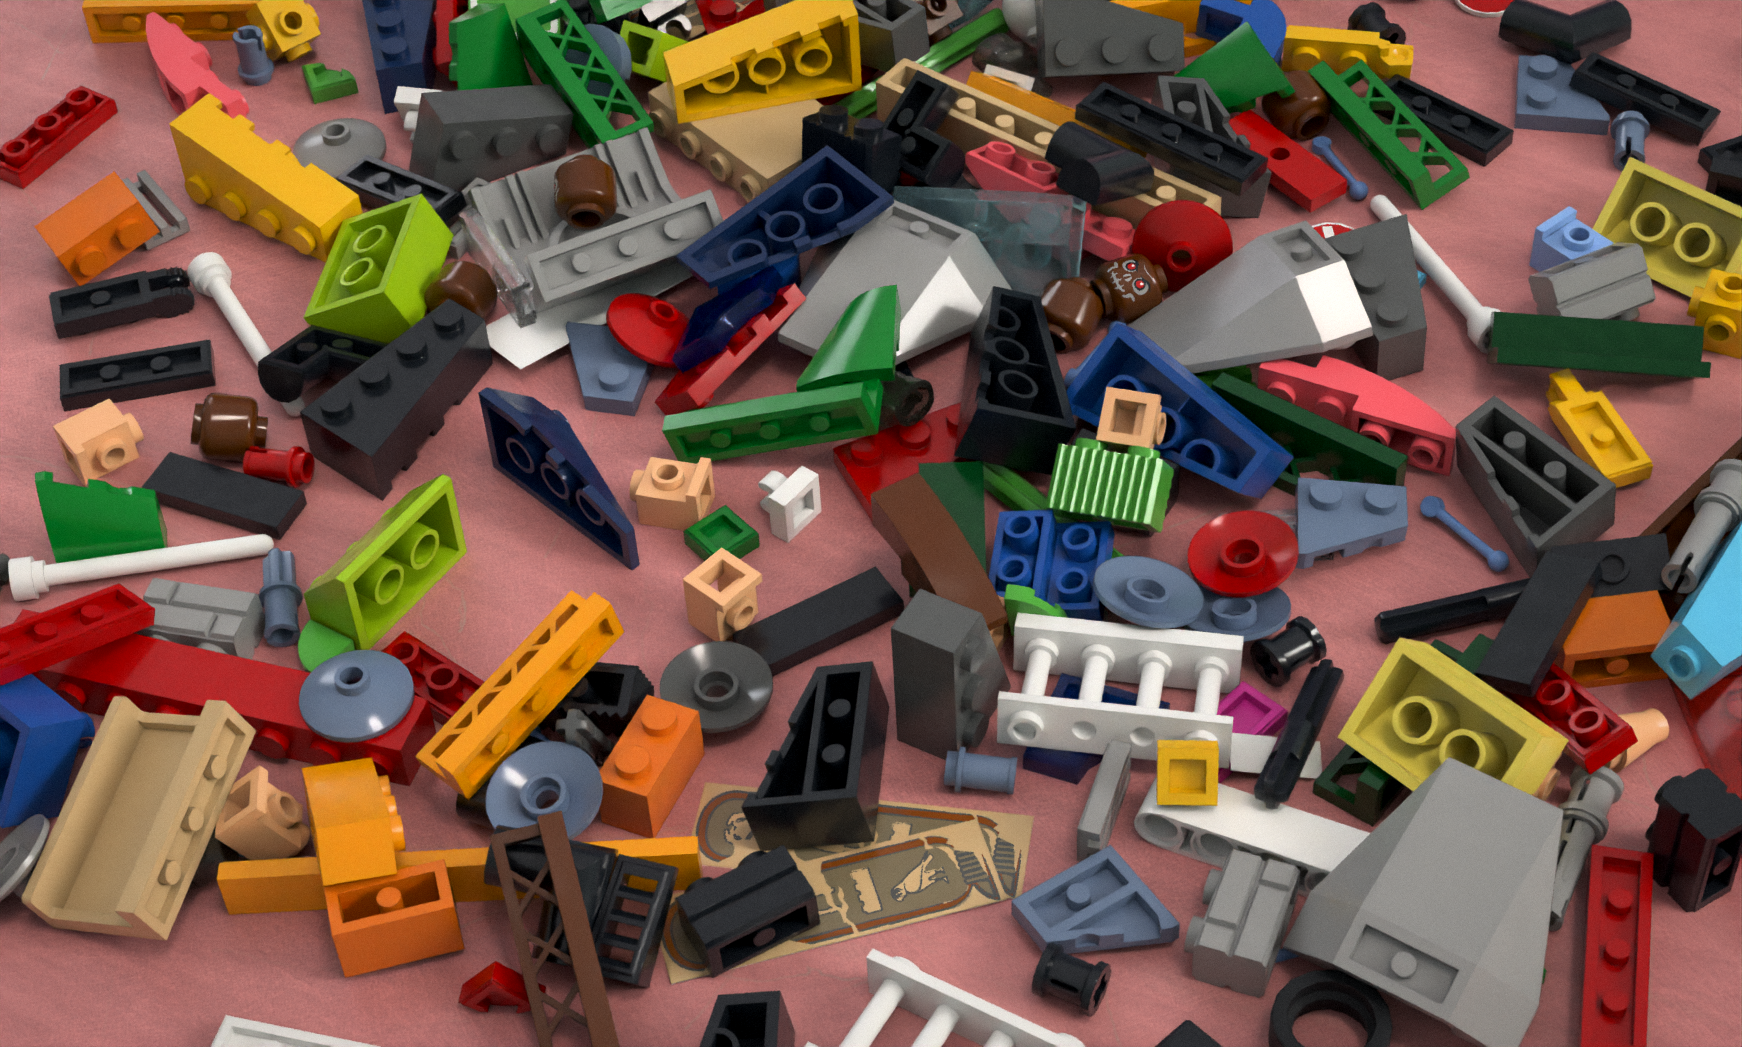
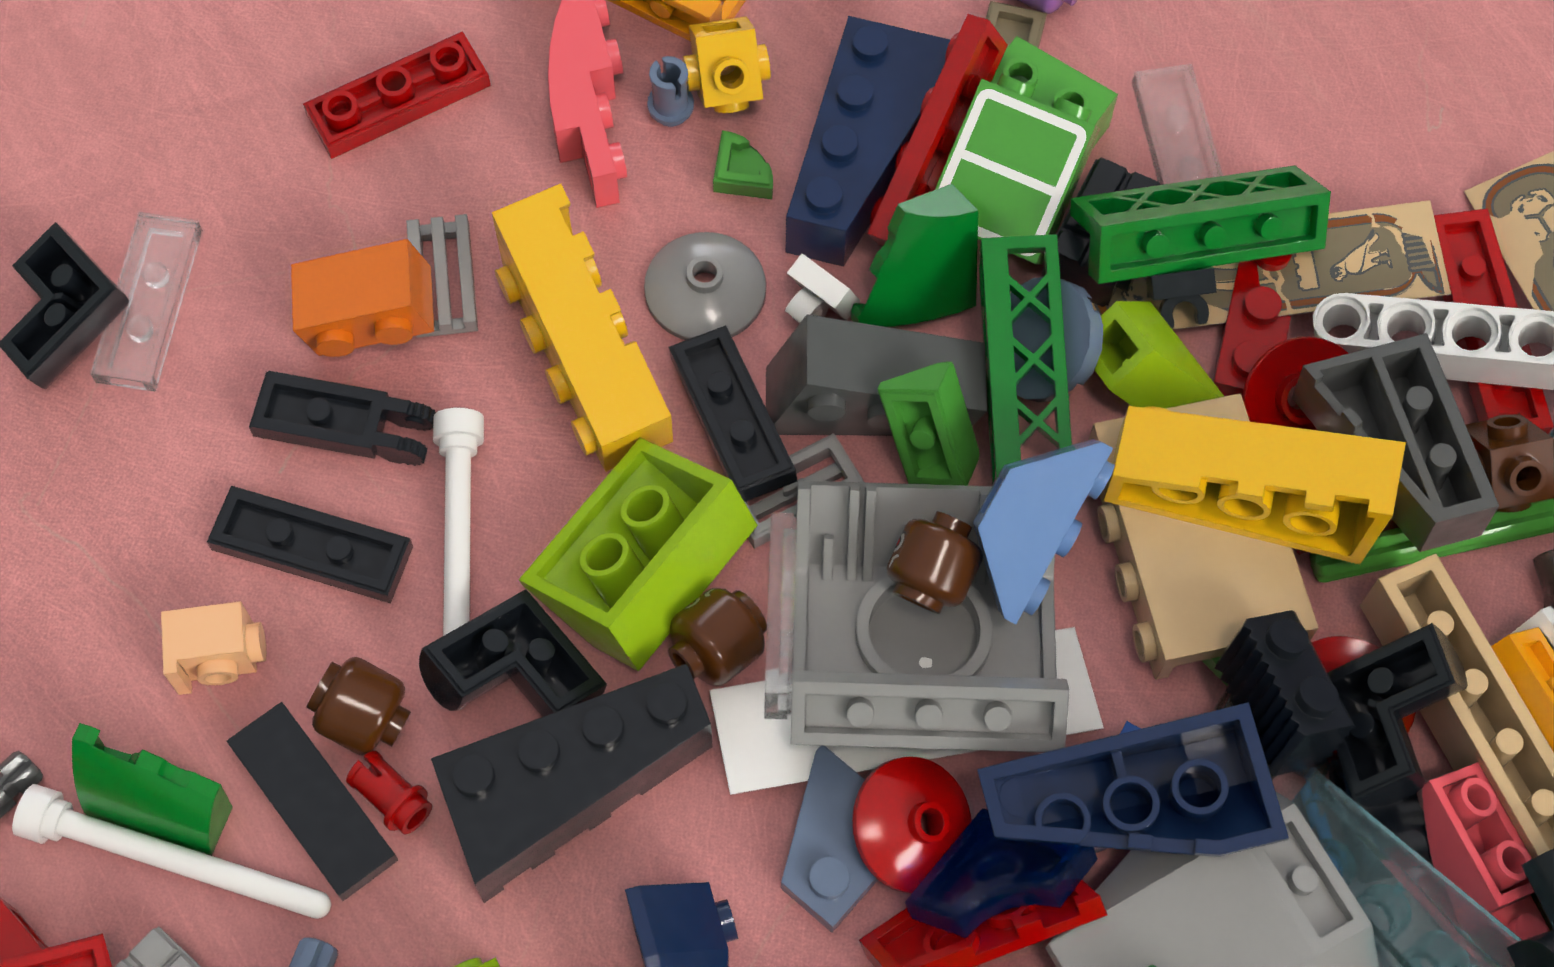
camera: 25 degrees right, 20 degrees up
(535, 124) = (931, 425): none -> bright green slope
(635, 135) = (1033, 518): none -> medium blue slope

